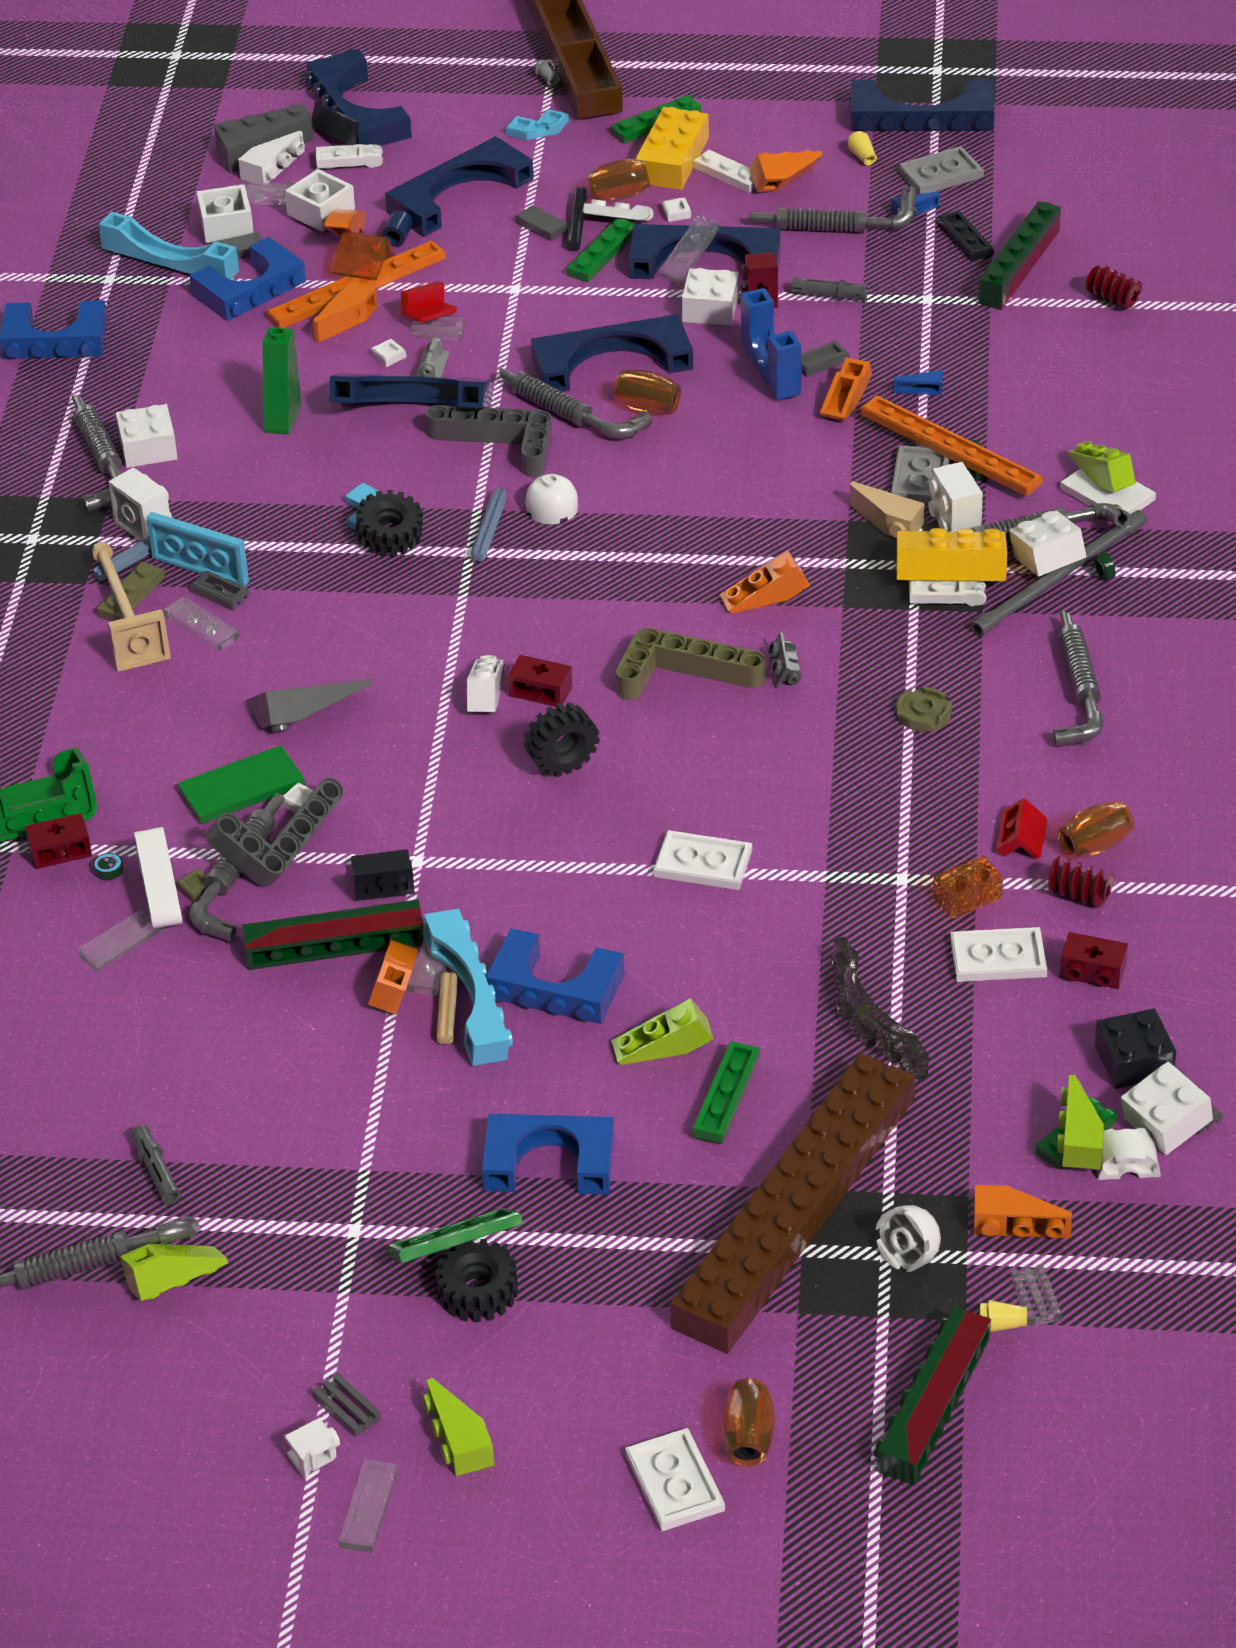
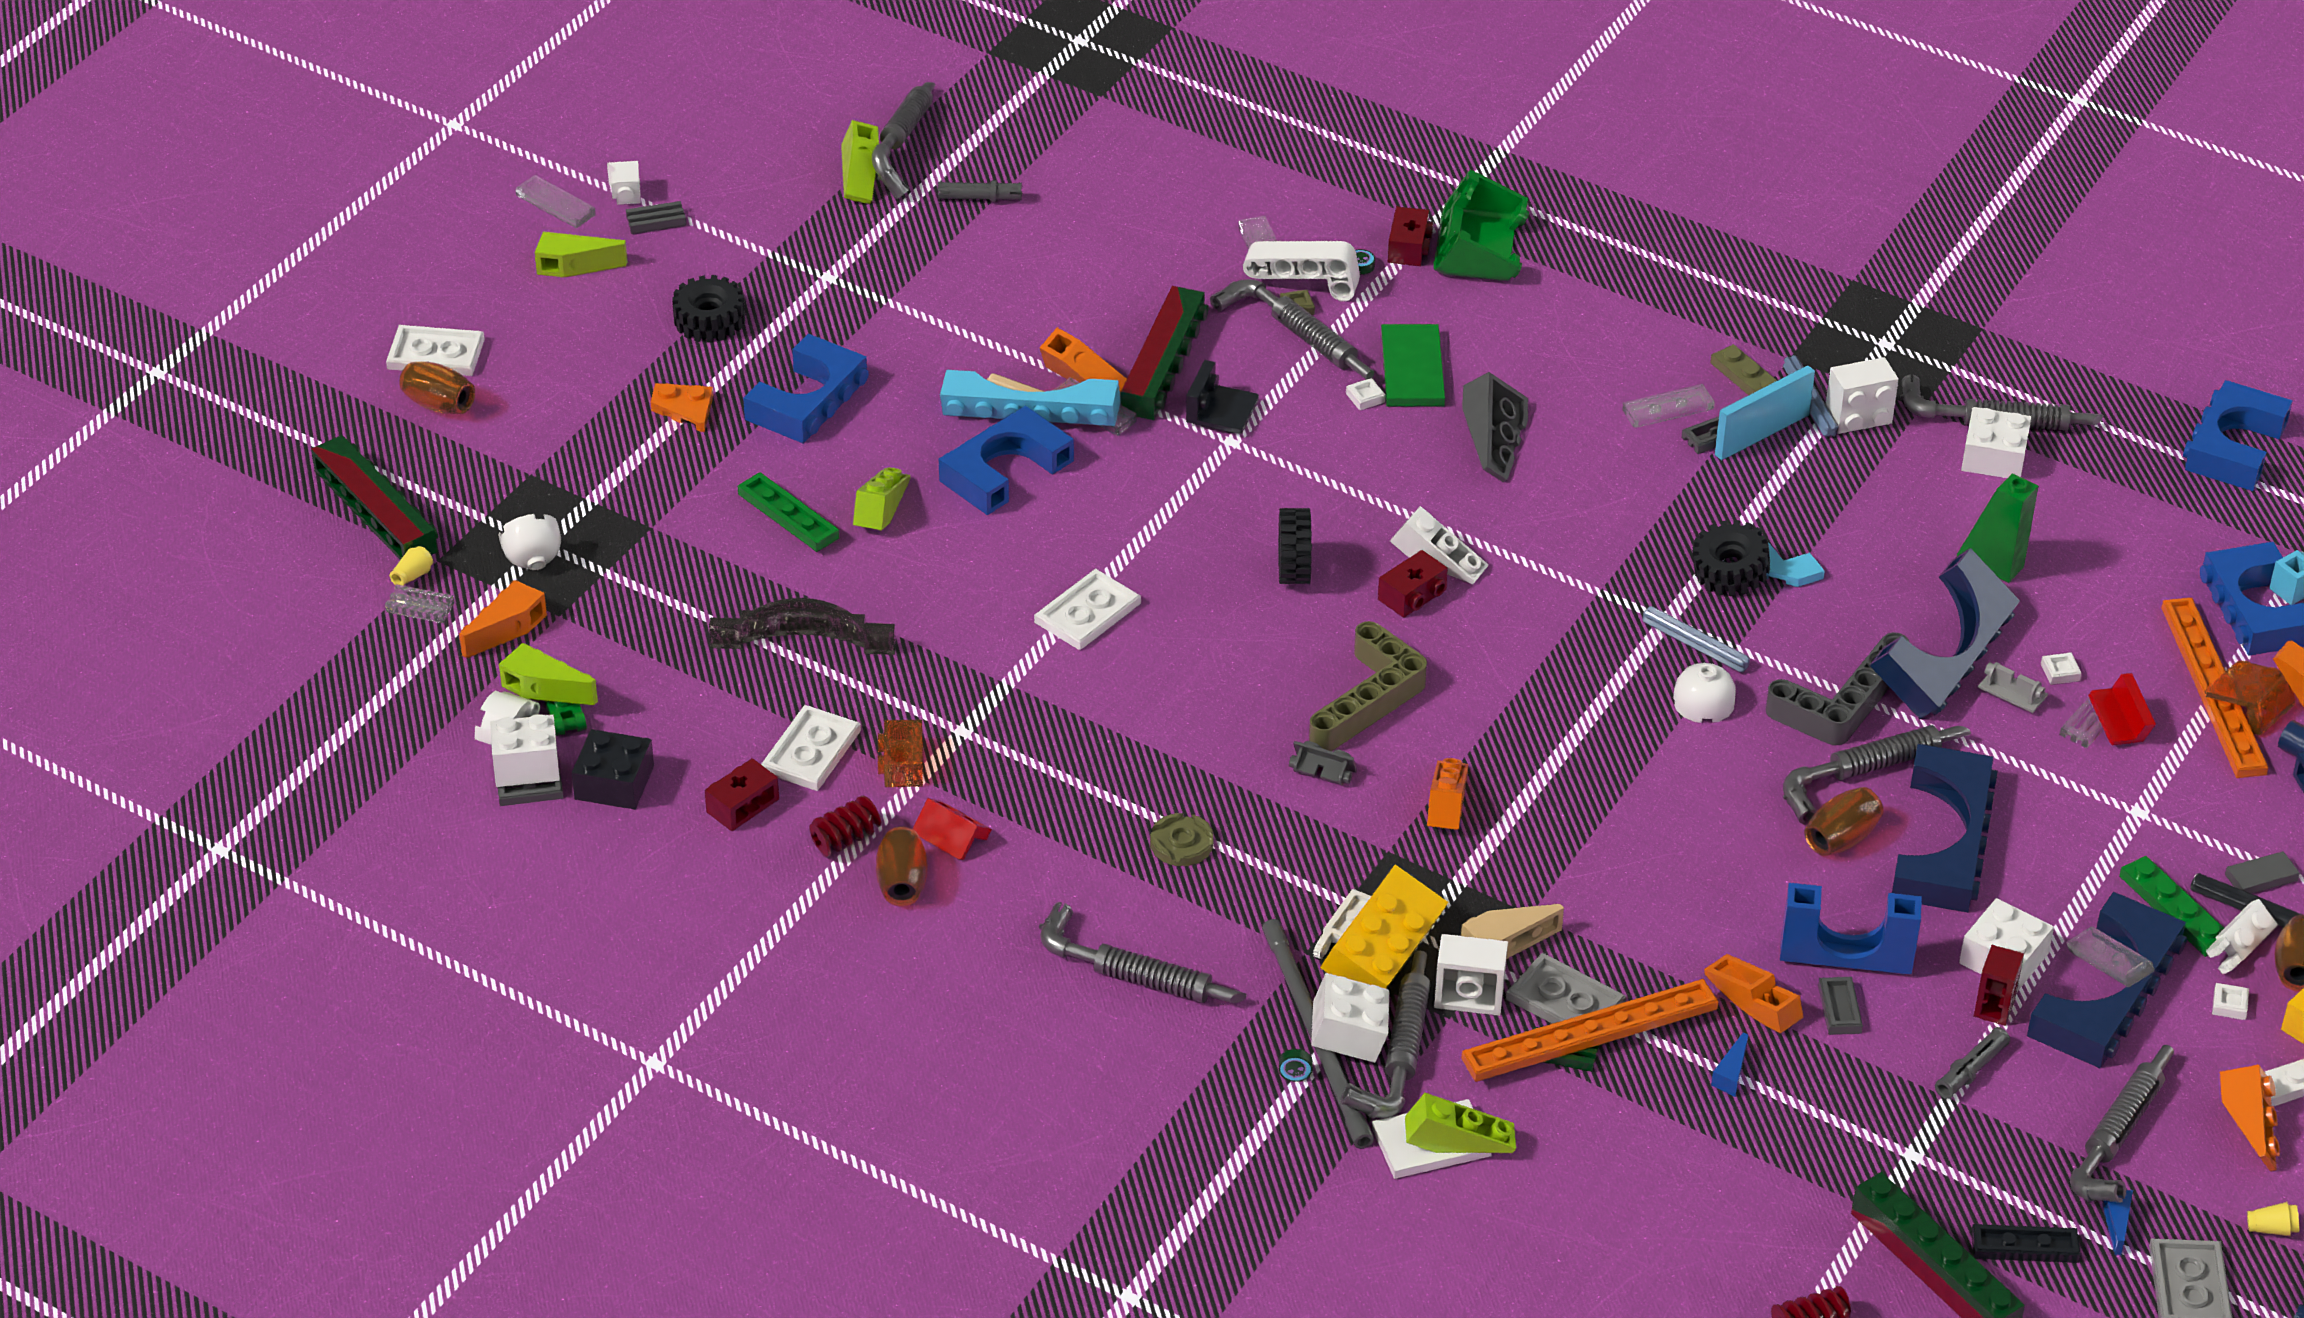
camera: 115 degrees right, 0 degrees up
(136, 638) = (1651, 340): tan tile -> none
(268, 861) = (1280, 336): dark grey beam -> none
(347, 309) = (2155, 654): orange slope -> none
(453, 1234) = (757, 303): green tile -> none
(623, 1242) = (683, 403): none -> orange wing
(792, 1203) = (634, 502): reddish brown piece -> none

